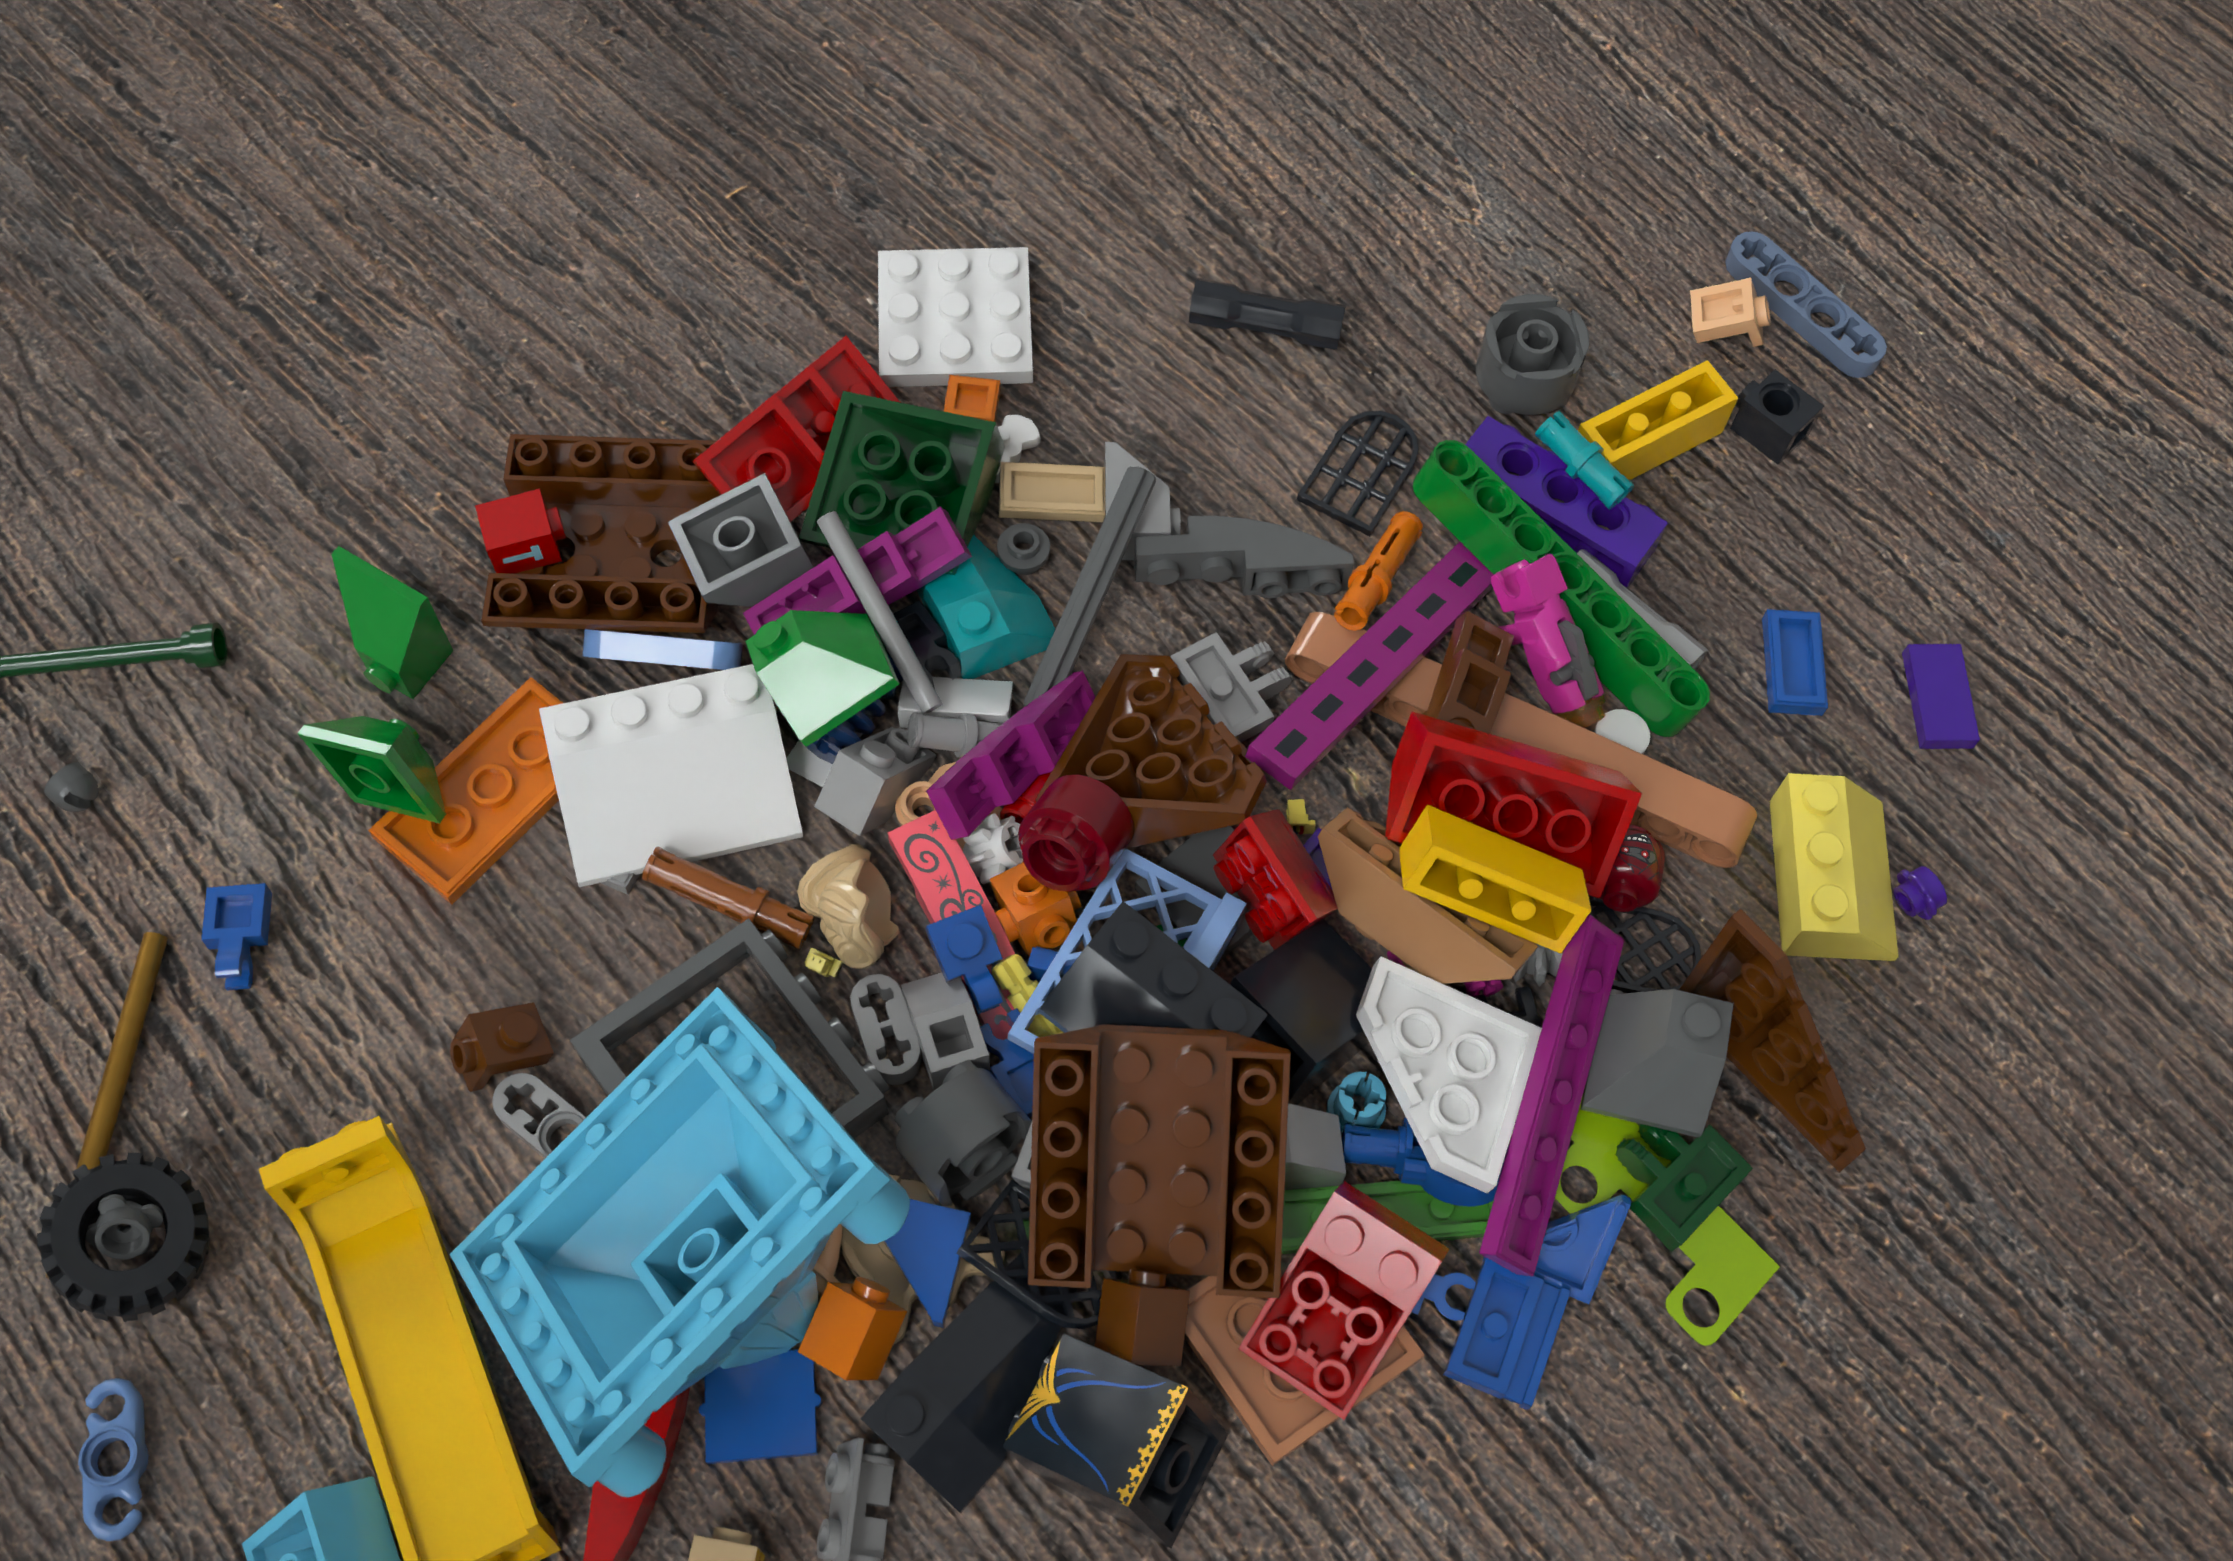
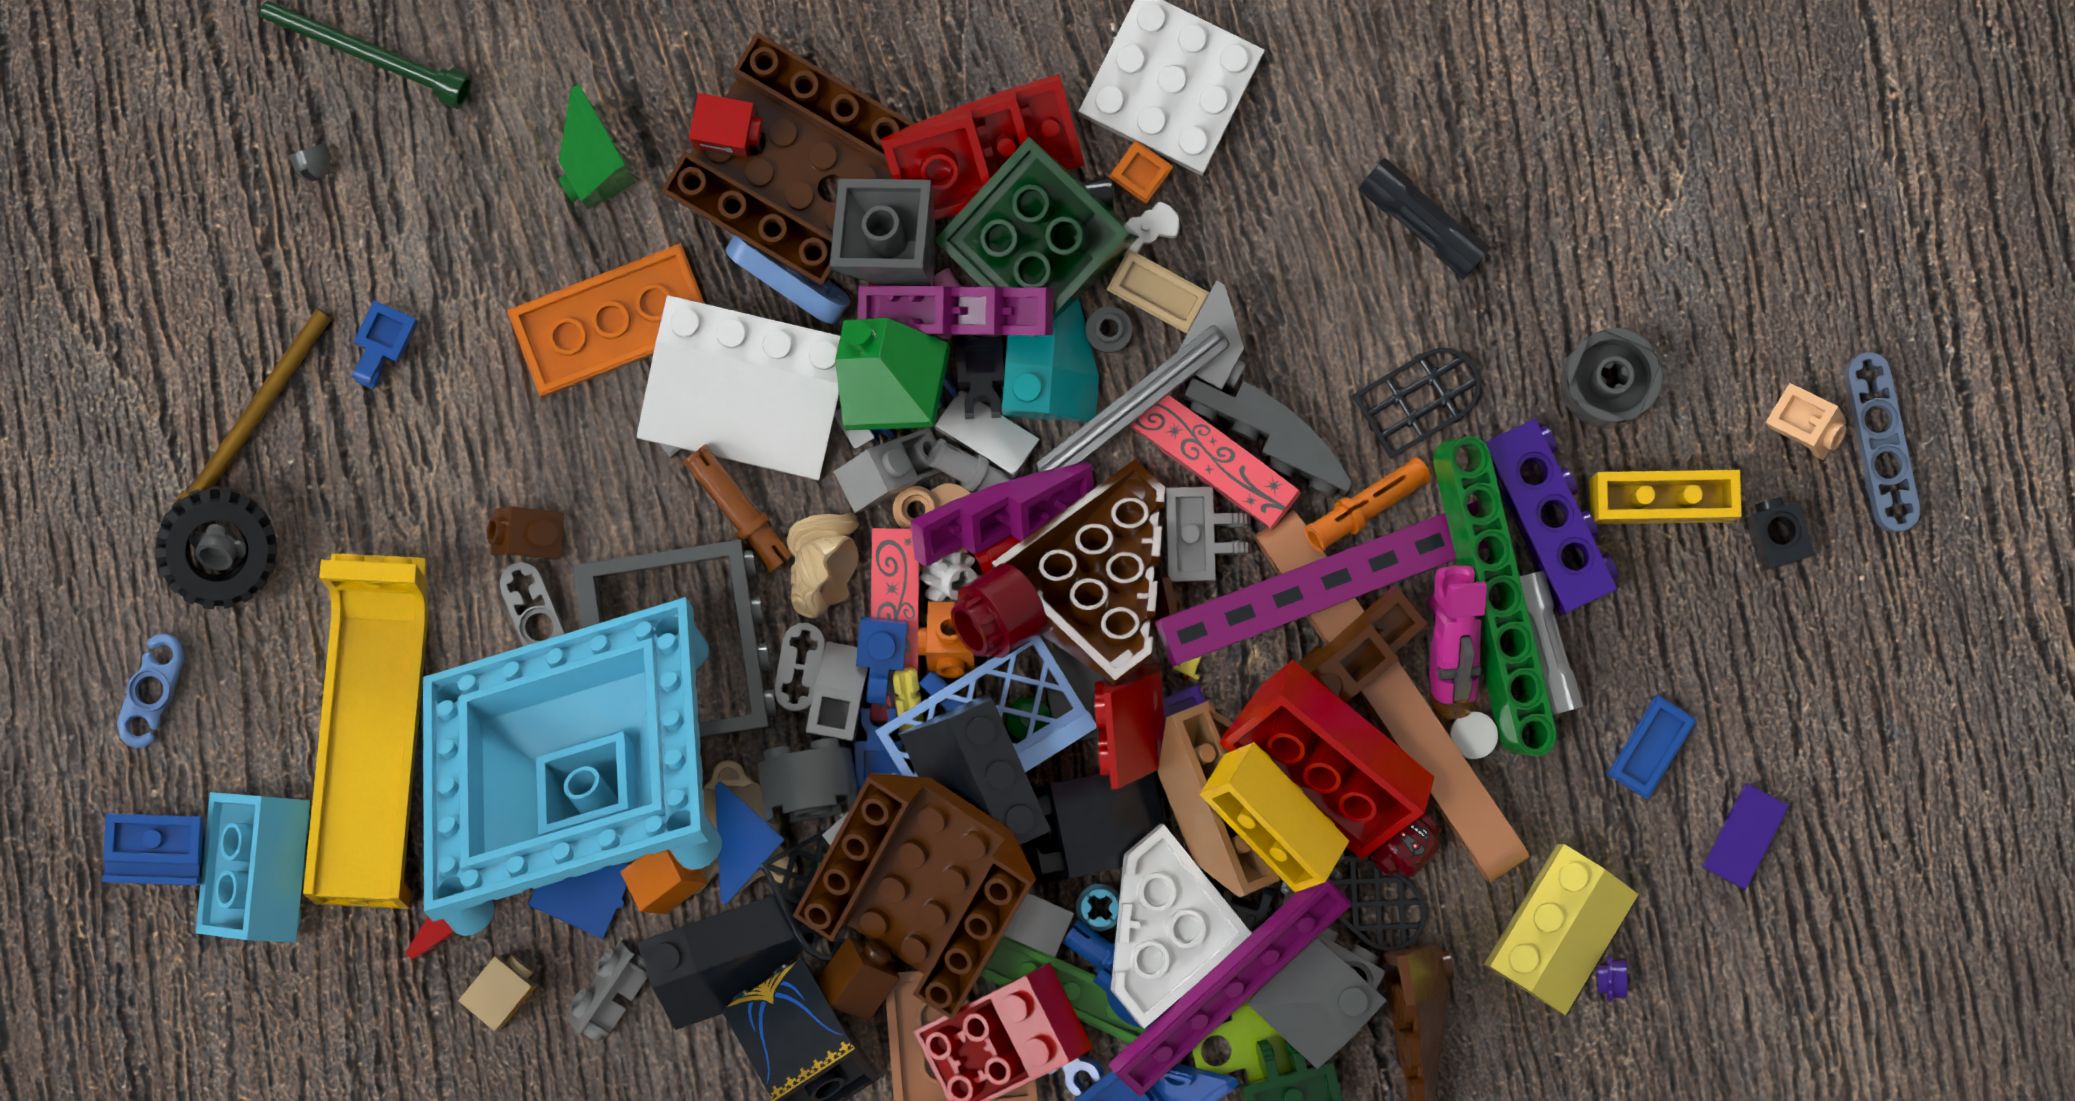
camera: 35 degrees right, 20 degrees up
(378, 764) = (538, 269): green slope -> none
(822, 963) = (779, 591): light yellow piece -> none
(879, 612) = (955, 348): light grey bar -> none
(1204, 604) = (1217, 461): none -> coral slope
(1584, 460) = (1579, 505): teal pin -> none

